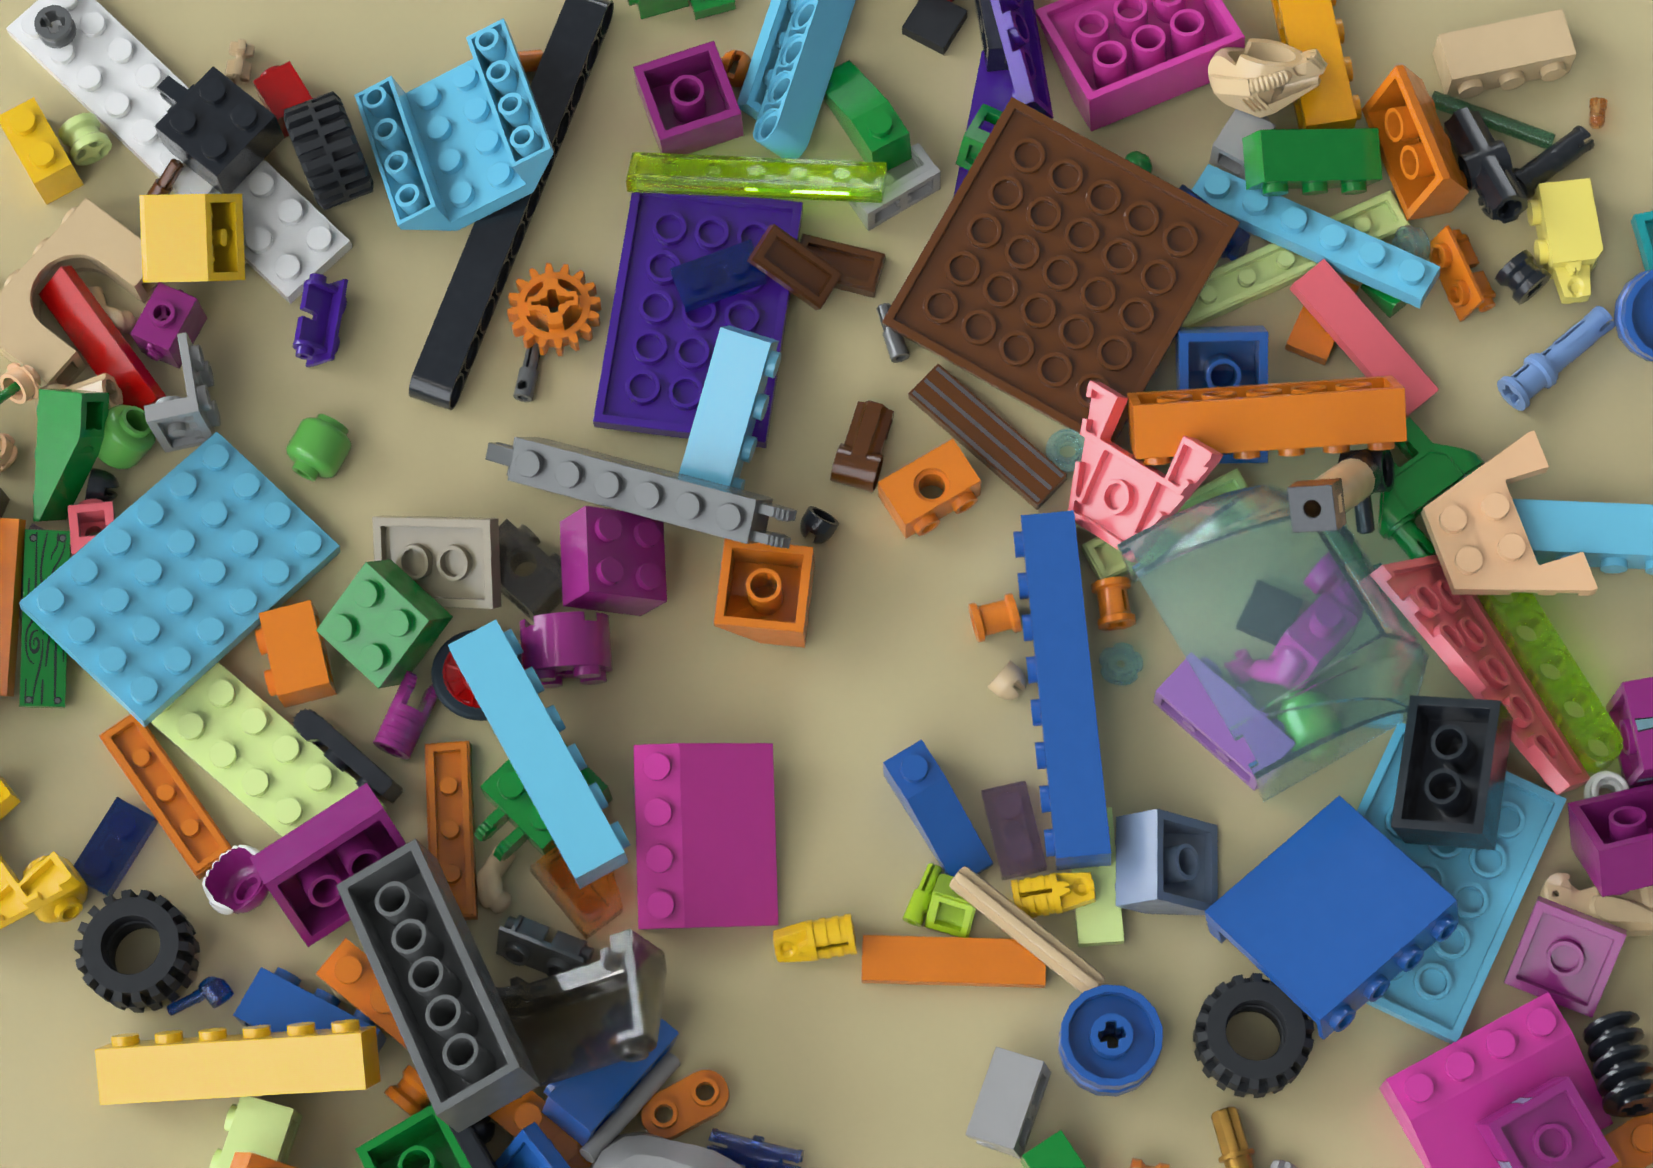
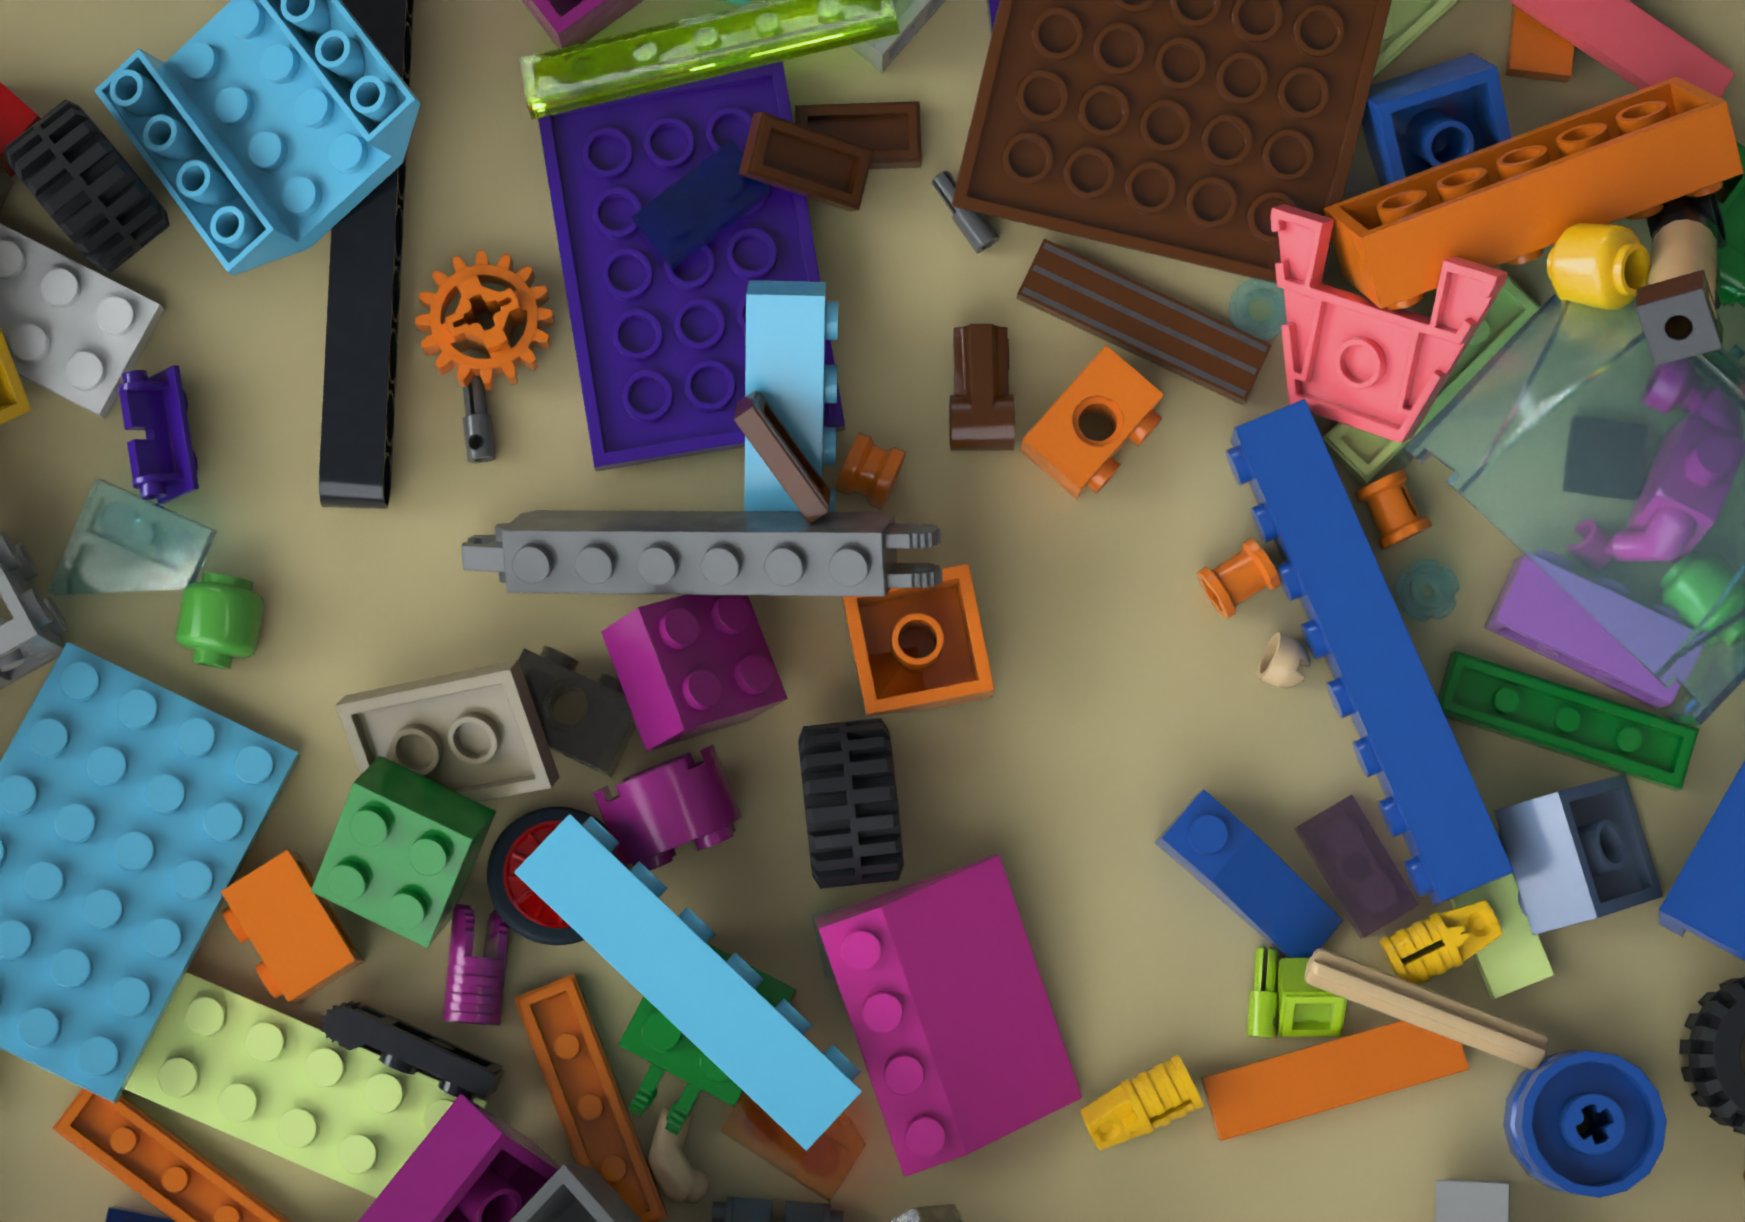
camera: 25 degrees left, 10 degrees up
(277, 385) = (130, 546): none -> clear light blue wing
(684, 677) = (851, 803): none -> black tyre
(712, 439) = (783, 456): none -> reddish brown tile
(773, 476) = (870, 471): none -> orange wheel
(818, 523) = (955, 517): black hinge -> none
(1188, 778) = (1566, 721): none -> green tile
(1282, 464) = (1598, 265): none -> yellow head

